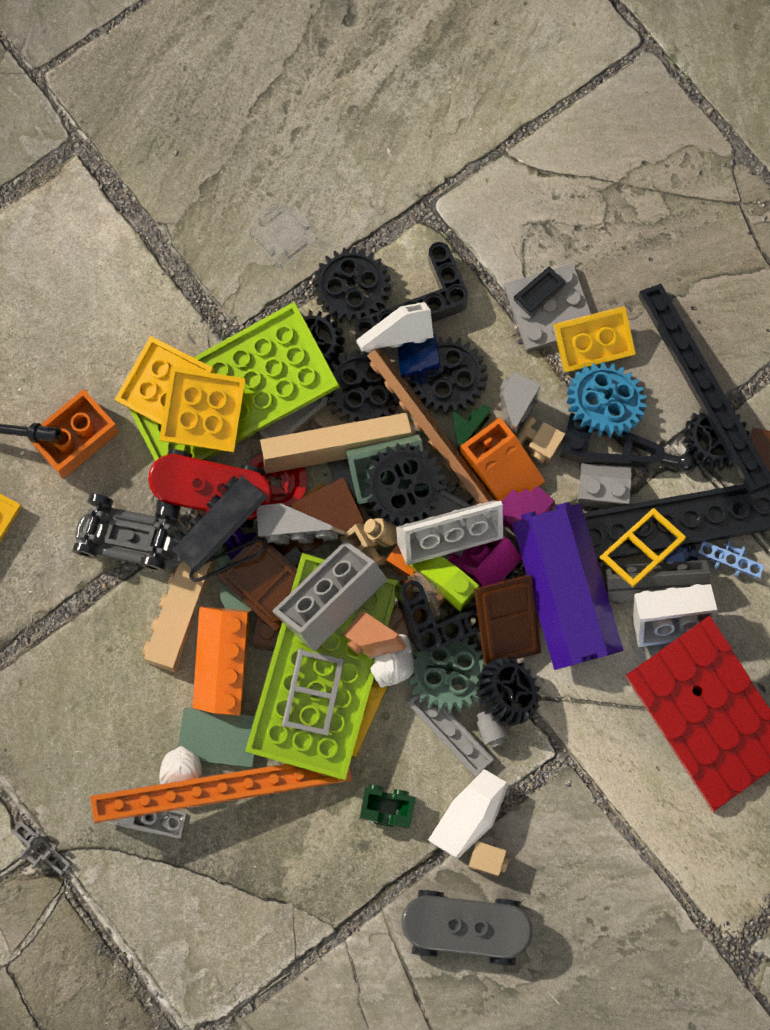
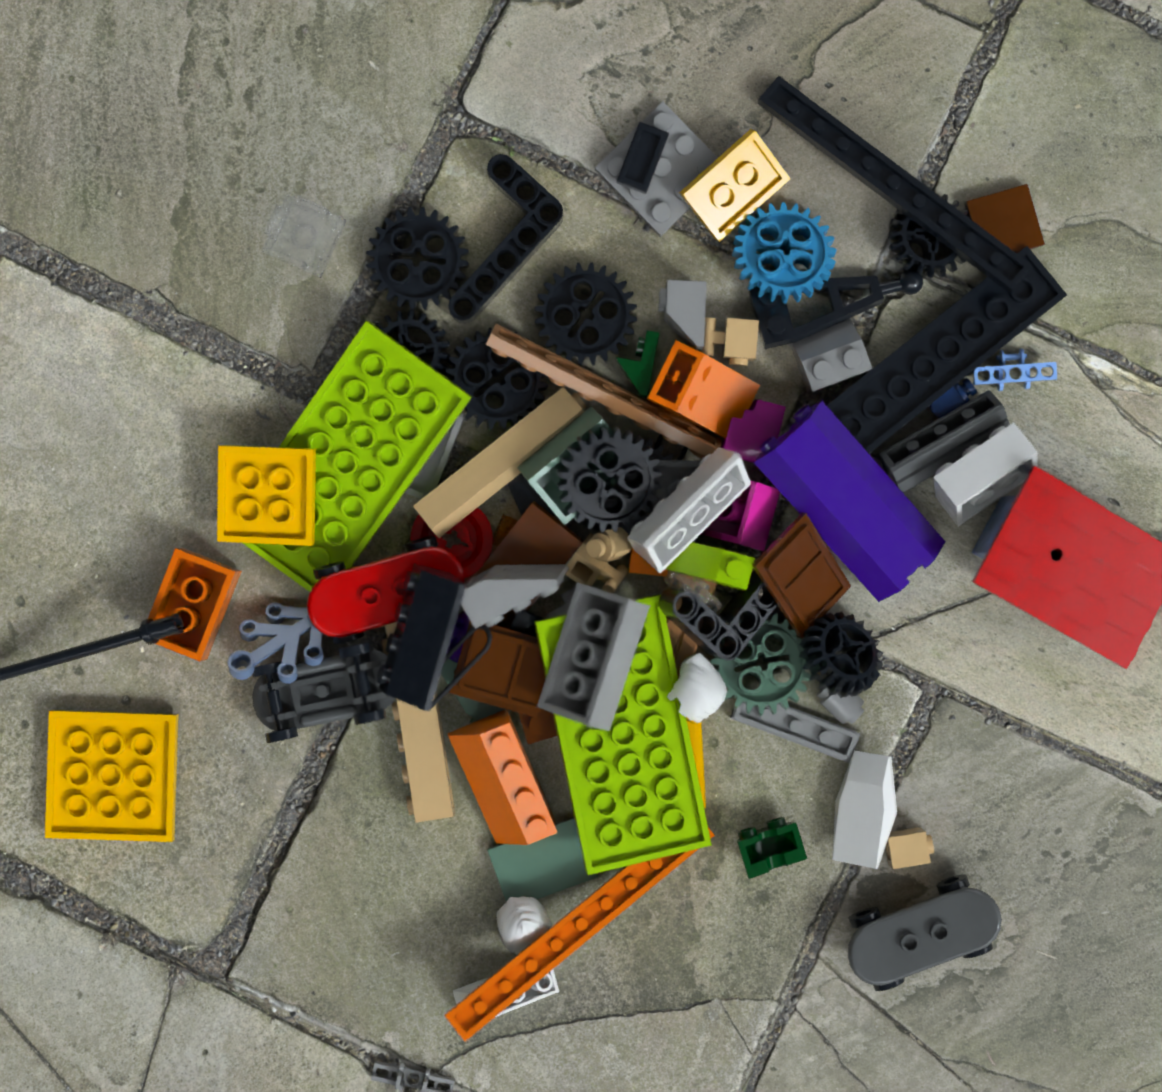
camera: 30 degrees left, 15 degrees up
(85, 486) = (284, 636): none -> sand blue plant
(202, 409) = (328, 506): yellow plate -> none
(332, 696) = (651, 764): light grey window -> none
(372, 637) = (665, 681): nougat slope -> none
(404, 325) = (506, 287): white slope -> none
(418, 357) = (542, 310): clear blue piece -> none
(656, 559) = (936, 421): yellow window -> none

